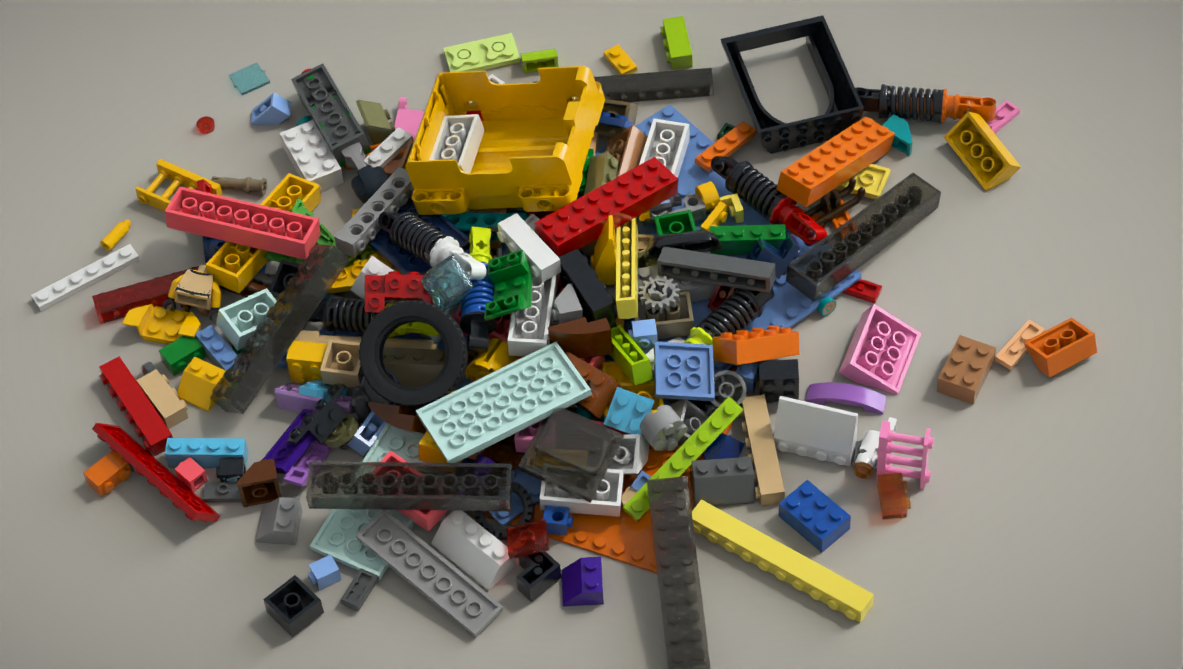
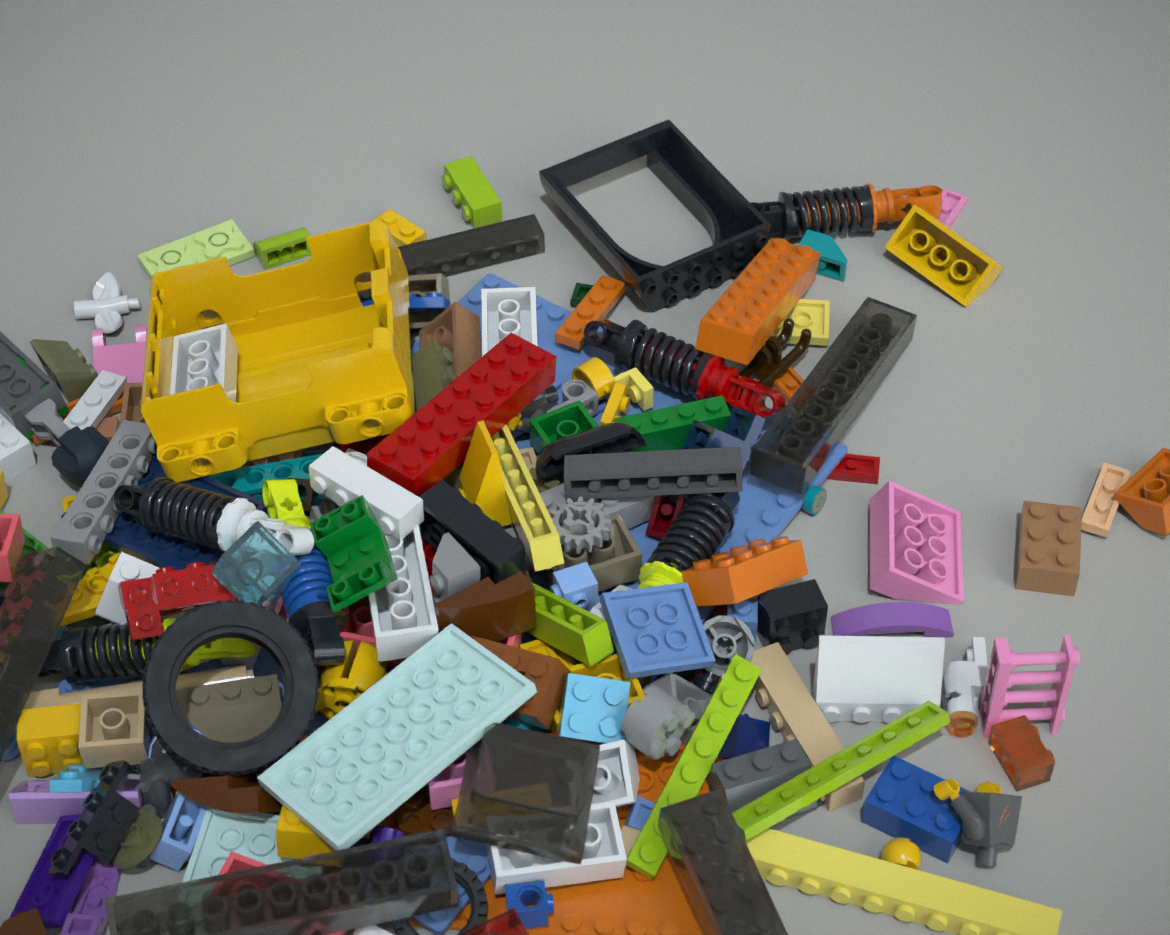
camera: 20 degrees left, 5 degrees down
(414, 80) = (106, 304): none -> white plant
(770, 480) = (839, 769): none -> lime plate
(792, 540) = (902, 852): none -> yellow piece
(848, 529) = (986, 817): none -> dark grey torso

